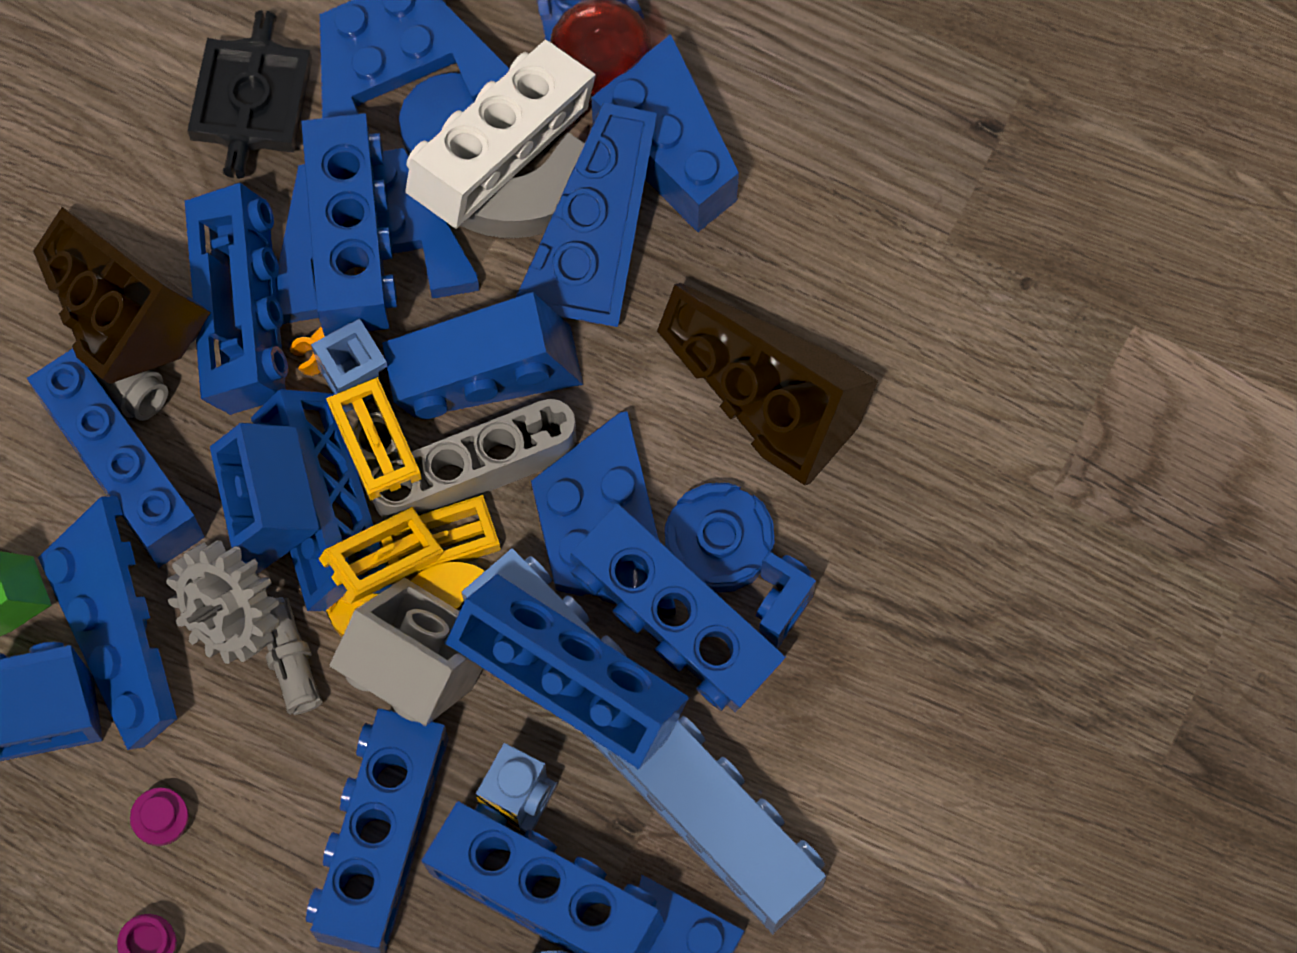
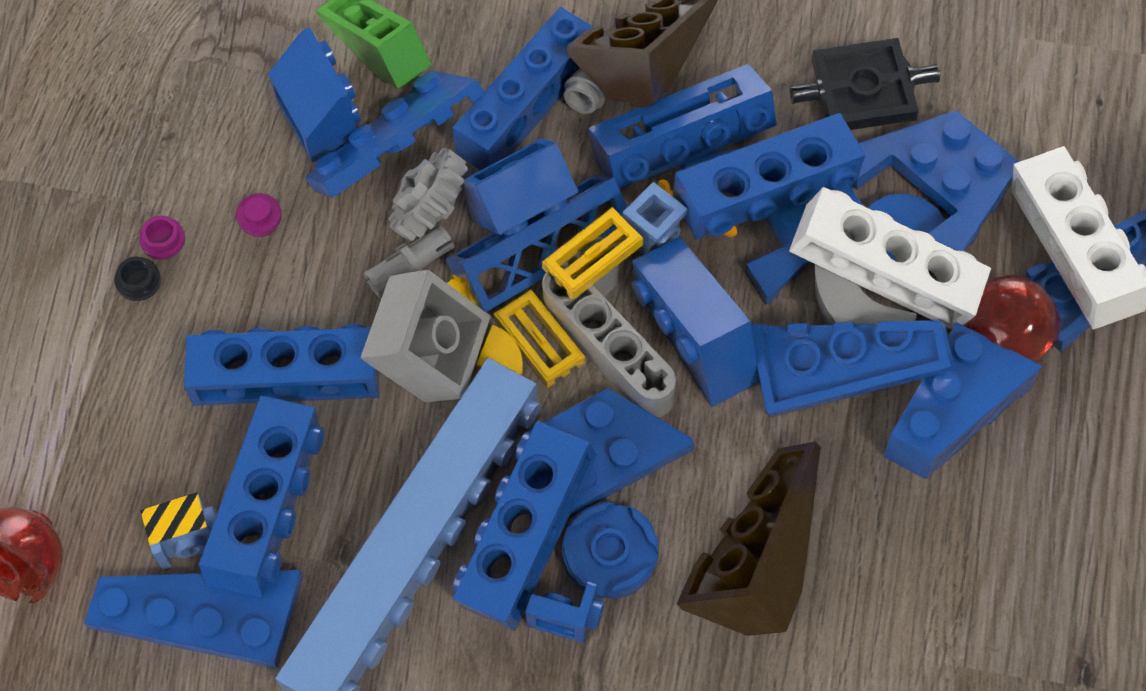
camera: 75 degrees right, 5 degrees down
(347, 573) = (469, 265): yellow tile -> none
(517, 788) = (343, 452): medium blue brick -> none
(567, 670) = (431, 447): blue brick -> none

